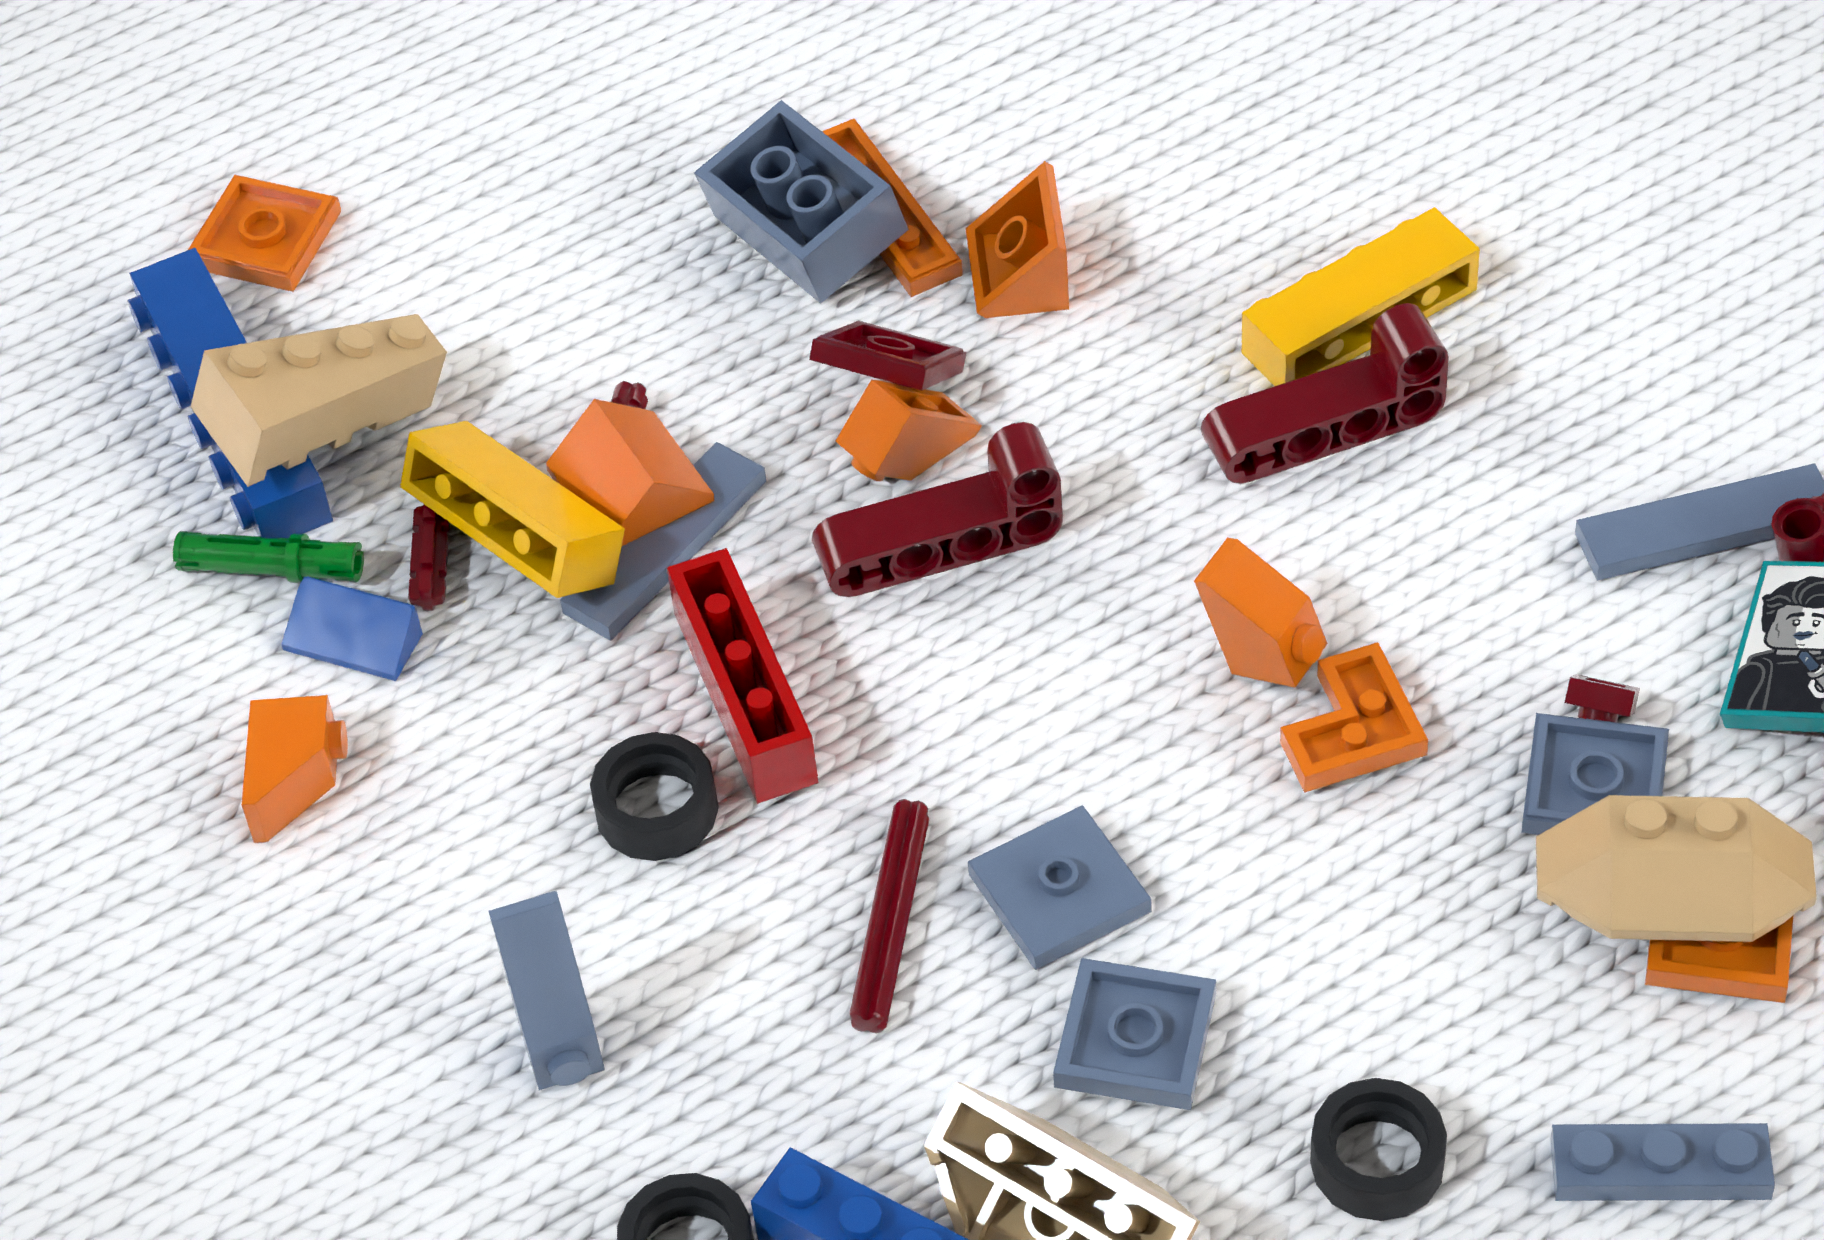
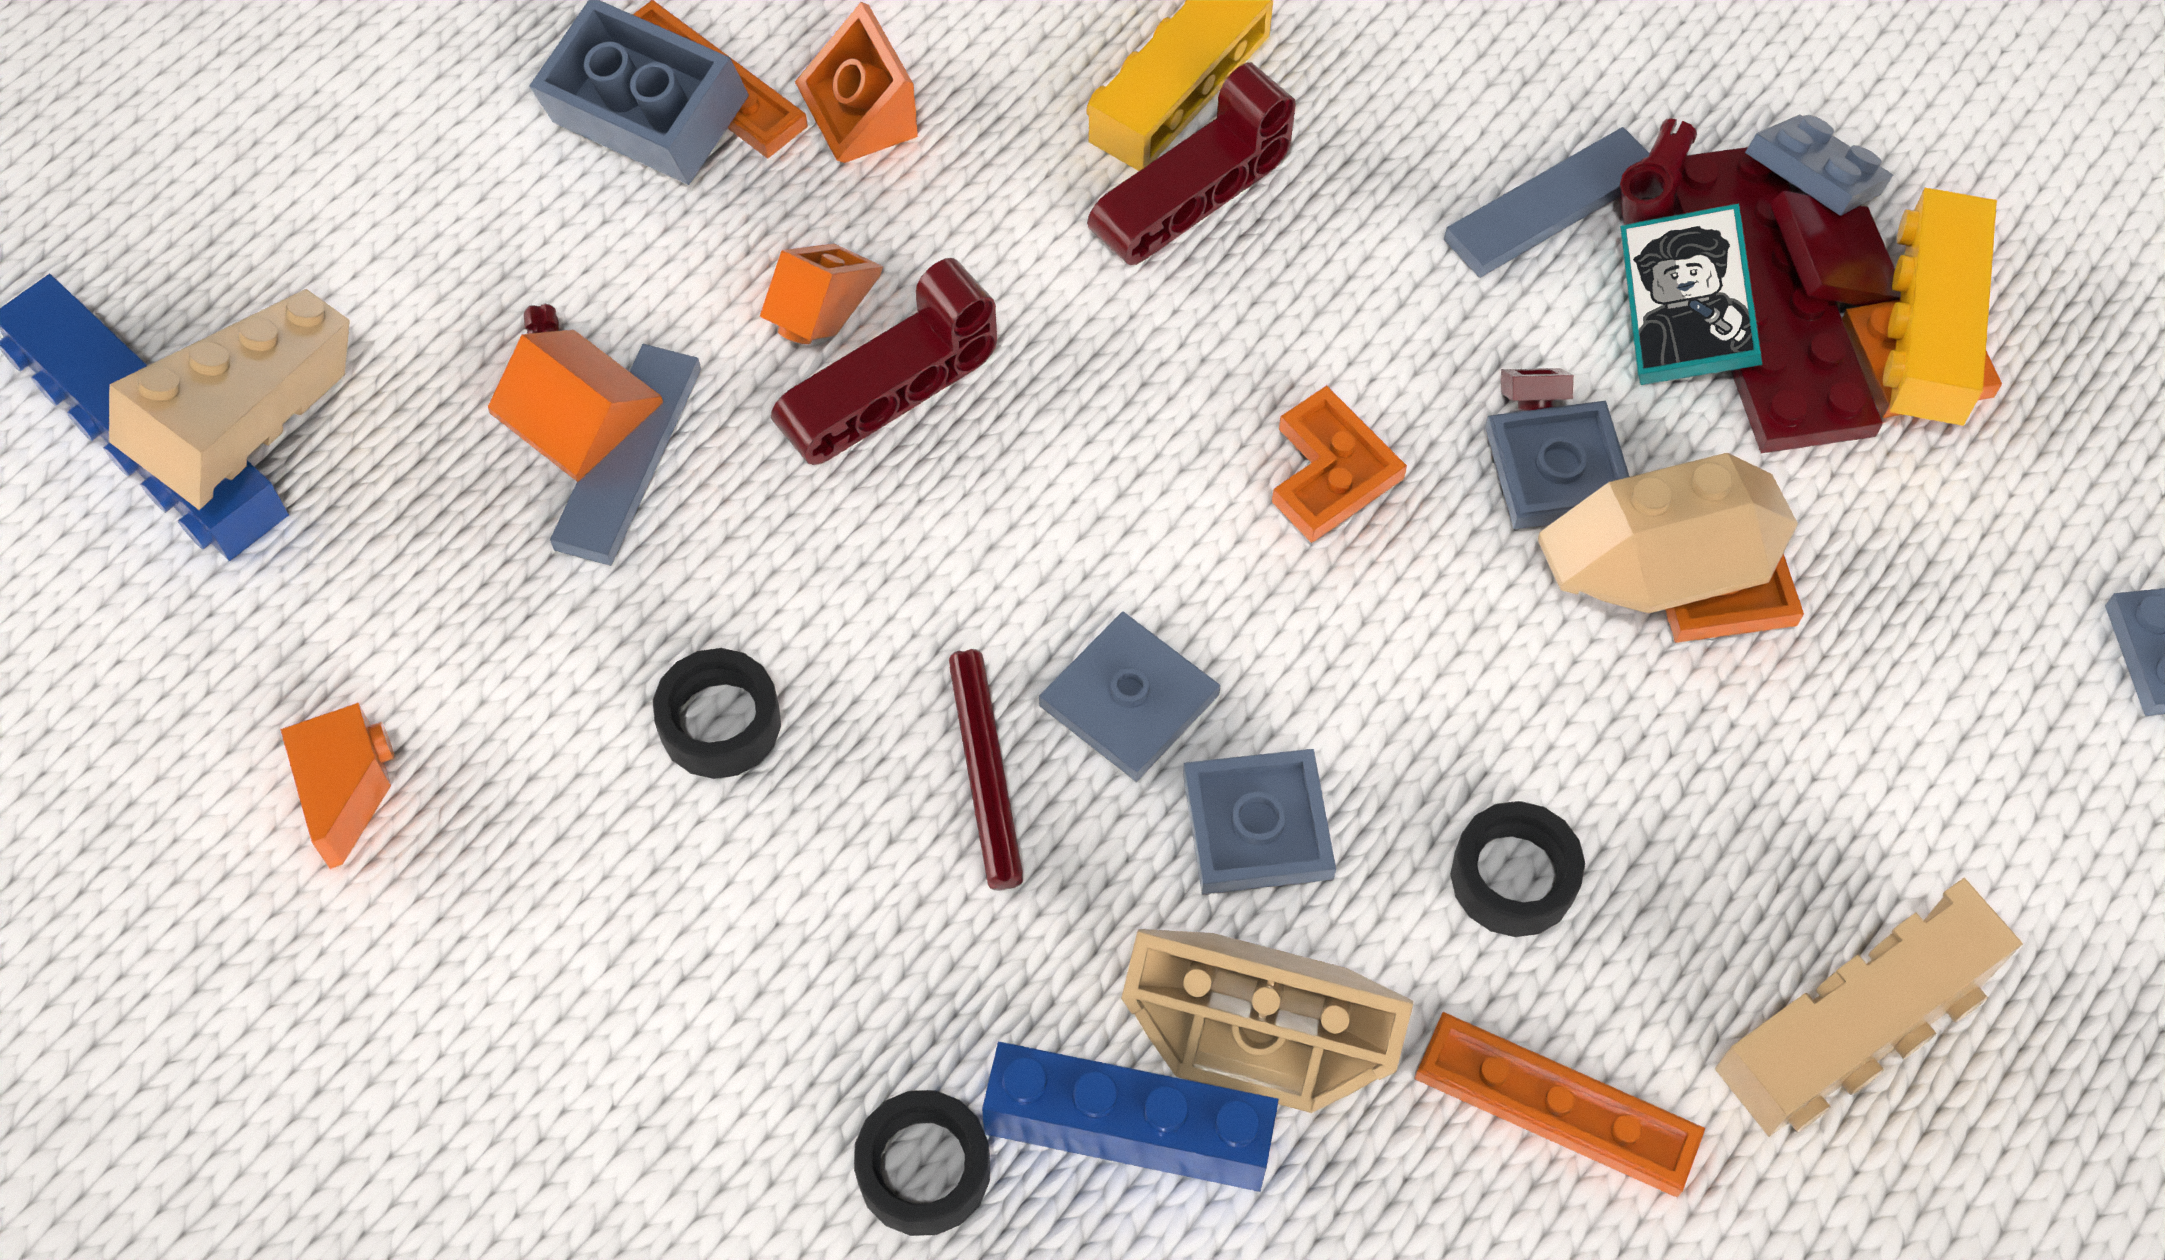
camera: 25 degrees left, 10 degrees up
(265, 232) = (112, 239): orange tile -> none
(282, 557) = (264, 565): green pin -> none
(352, 628) = (351, 622): slope -> none
(428, 559) = (401, 527): dark red axle -> none
(512, 508) = (473, 462): yellow brick -> none
(547, 990) = (702, 954): sand blue slope -> none
(742, 676) = (761, 571): red brick -> none
(888, 355) = (777, 221): dark red tile -> none
(1259, 616) = (1222, 390): orange slope -> none
(1662, 1162) = (1756, 805): sand blue plate -> none

